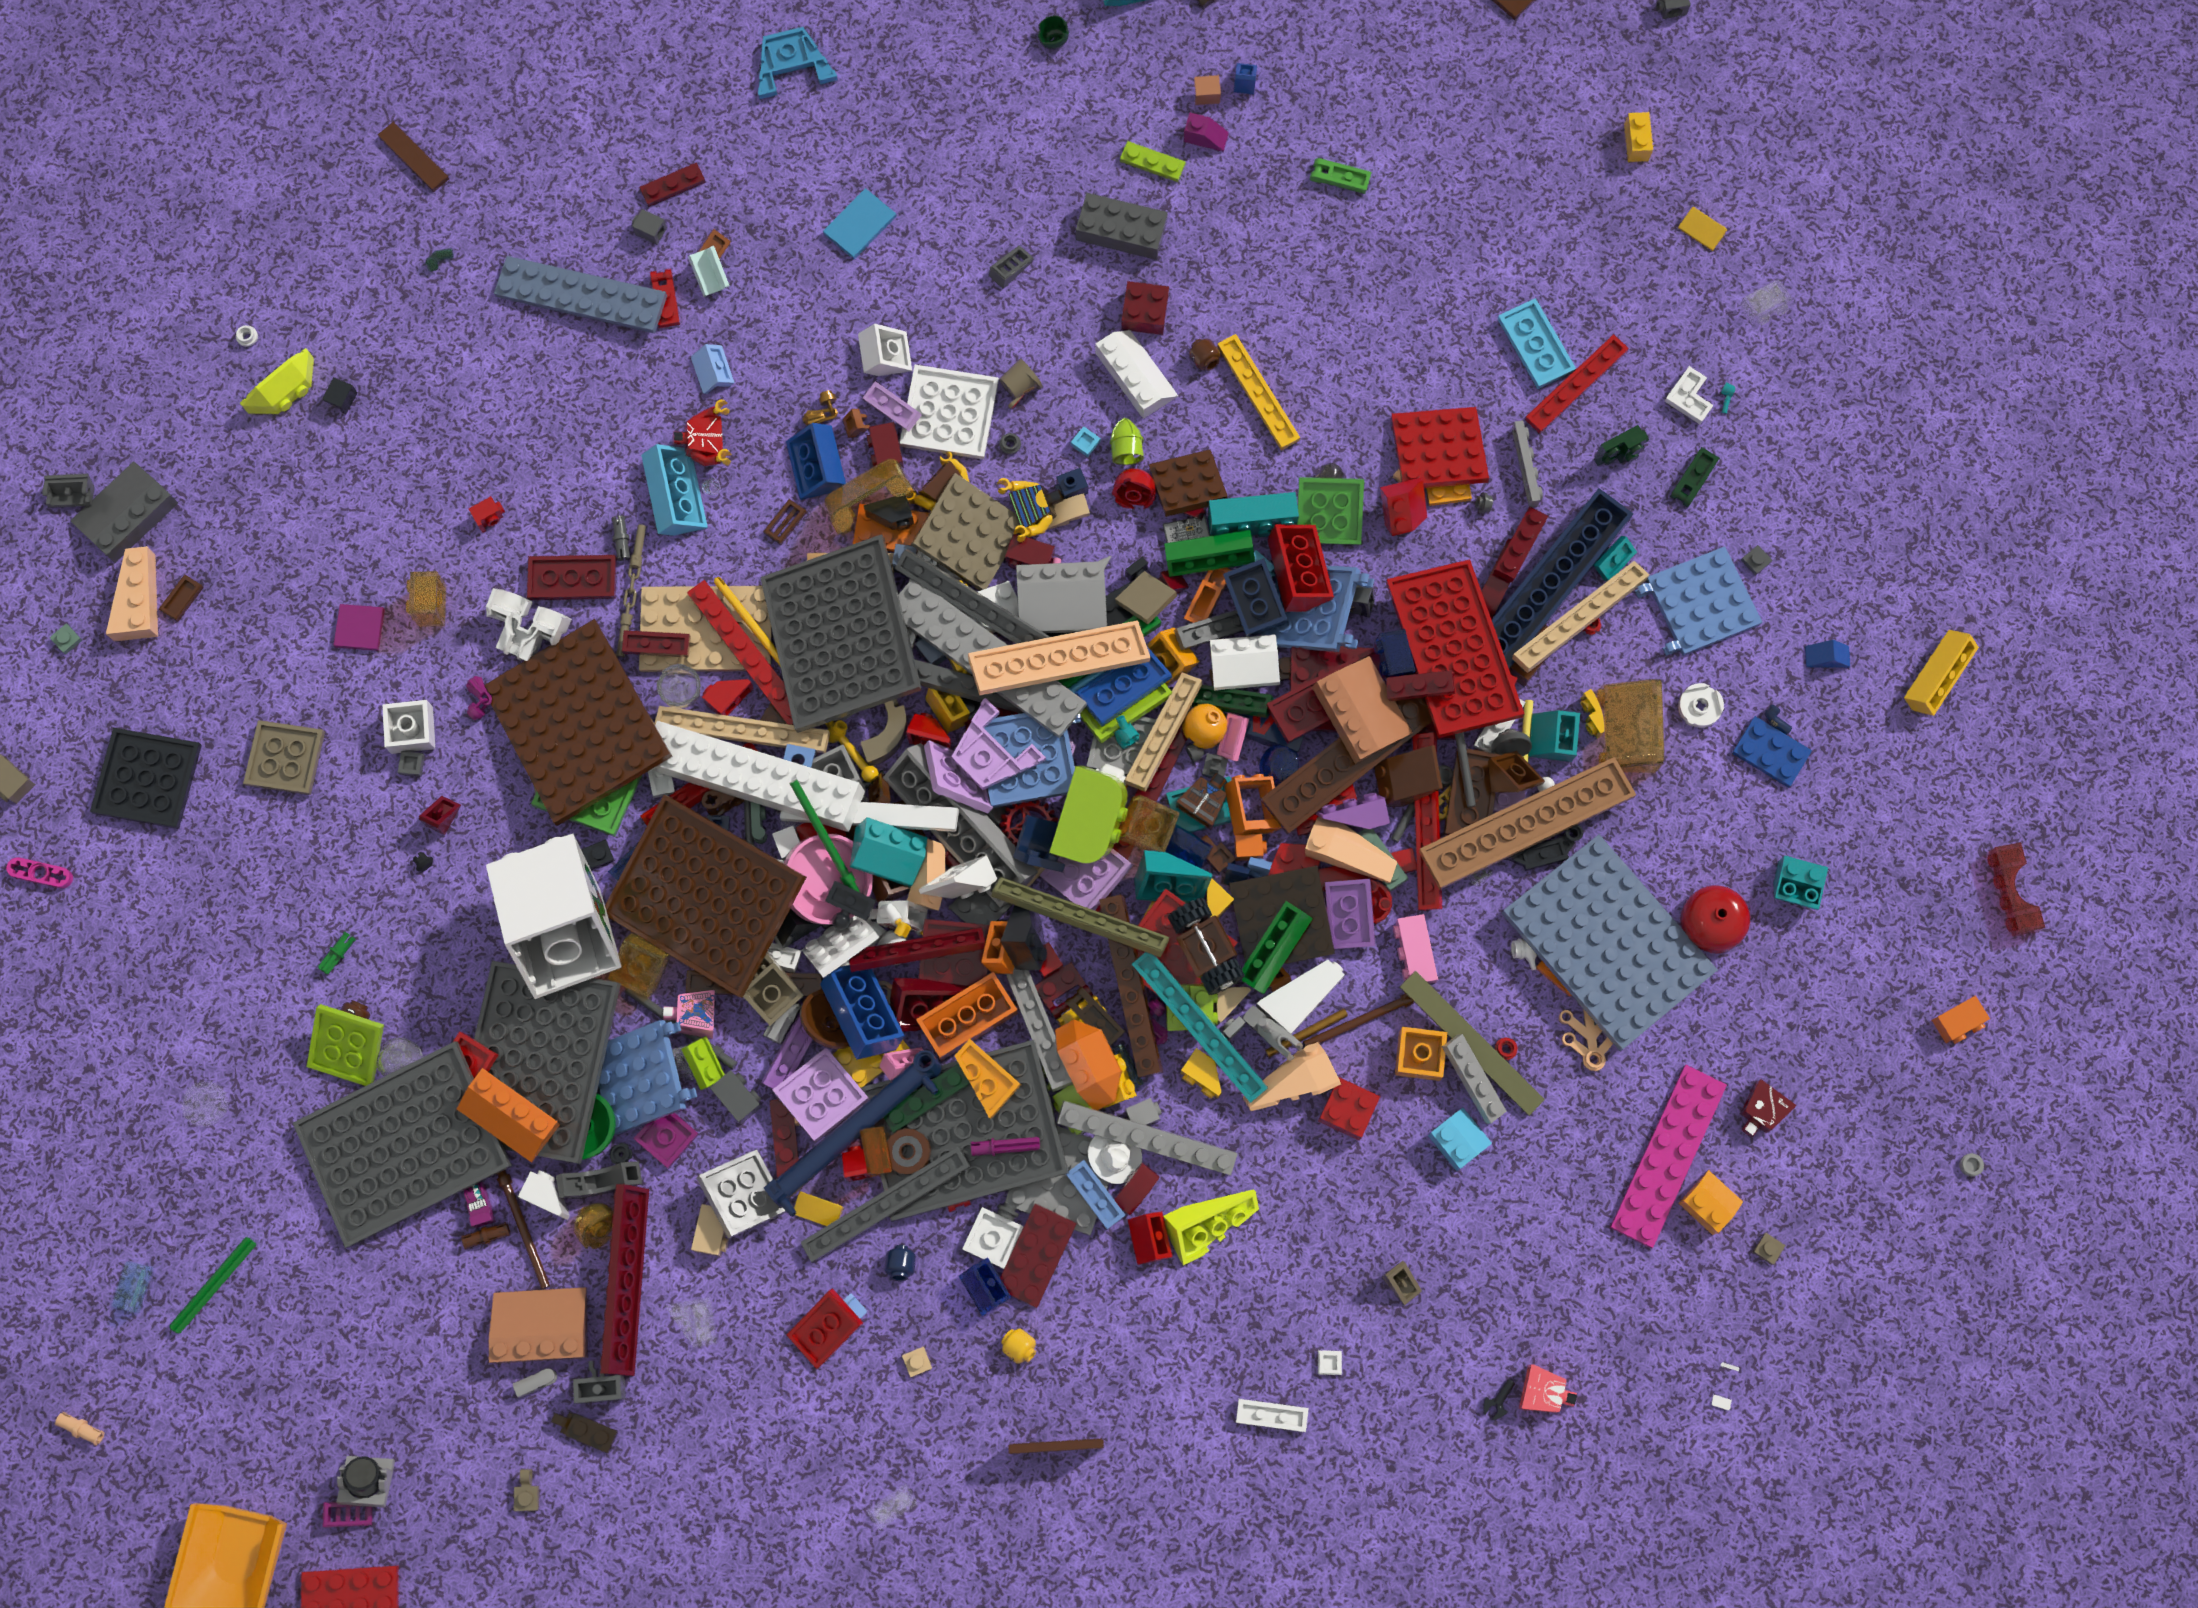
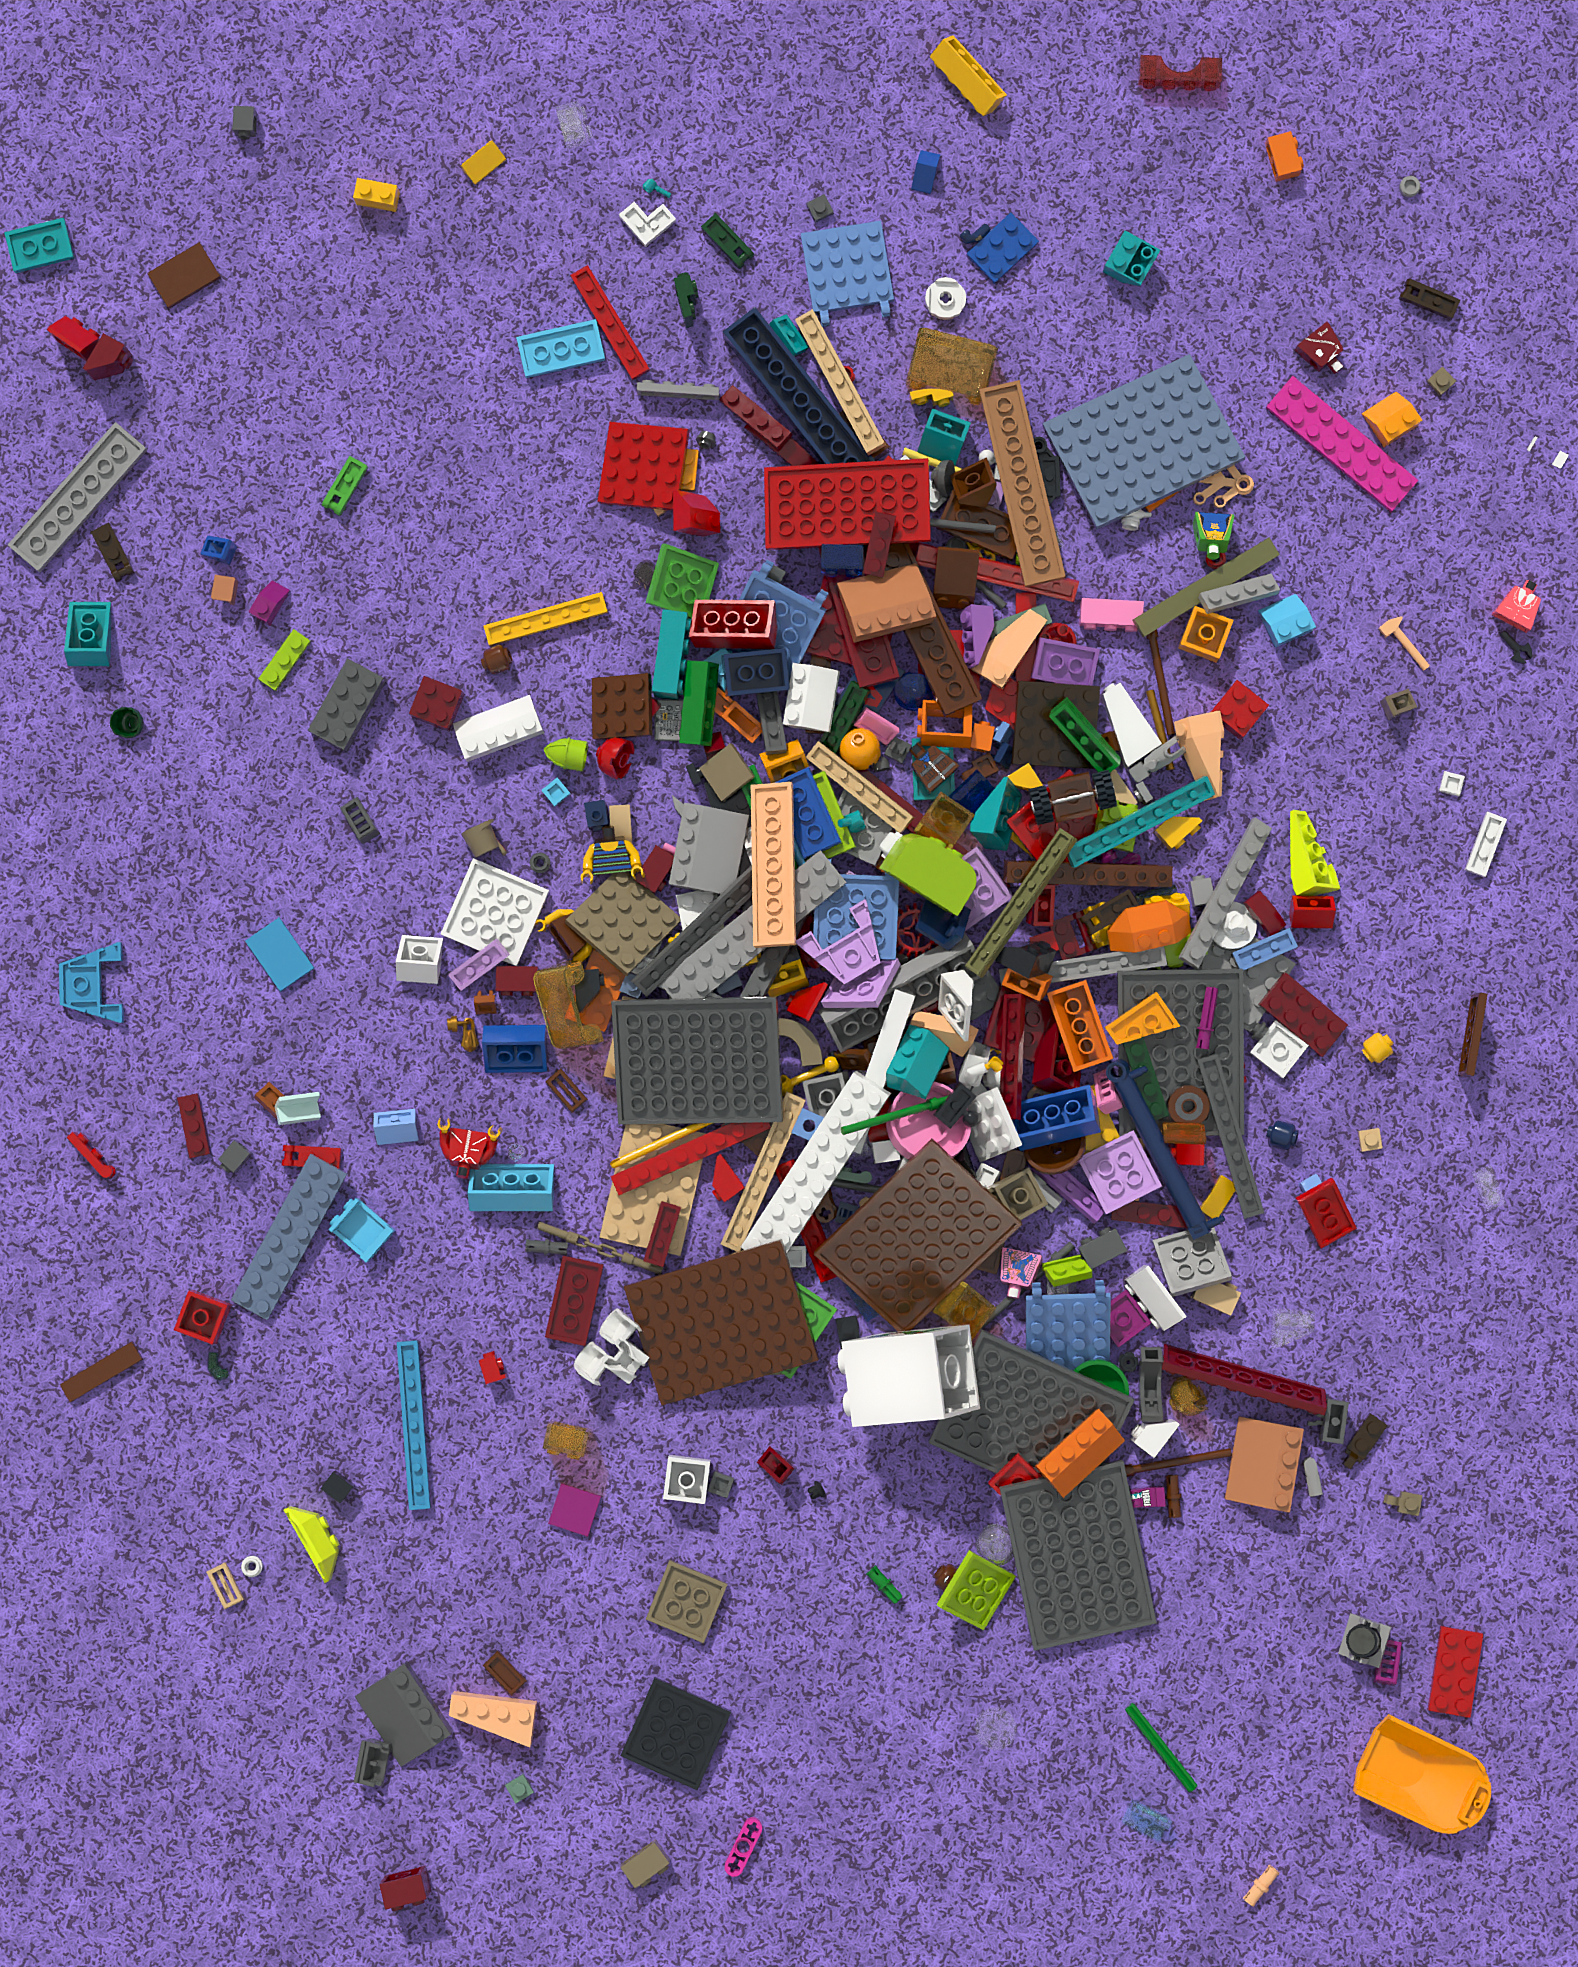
camera: 70 degrees left, 10 degrees up
(229, 321) = (232, 1581): none -> tan tile
(415, 453) = (413, 1425): none -> dark azure plate
(476, 687) = (660, 1410): magenta piece -> none
(483, 232) = (202, 1317): none -> red brick
(602, 360) = (361, 1229): none -> medium azure panel
(622, 98) = (93, 1155): none -> red plate
(679, 686) = (709, 1220): clear cylinder -> none
(692, 1162) = (1154, 1298): none -> white slope
(984, 1286) = (1321, 1065): clear blue brick -> none
(1085, 947) = (1043, 909): none -> red brick
(1484, 1257) = (1390, 627): none -> light nougat piece
(1532, 1037) = (1212, 532): none -> torso
(1704, 925) = (1139, 353): red cylinder -> none
(1854, 1215) = (1430, 299): none -> dark brown plate

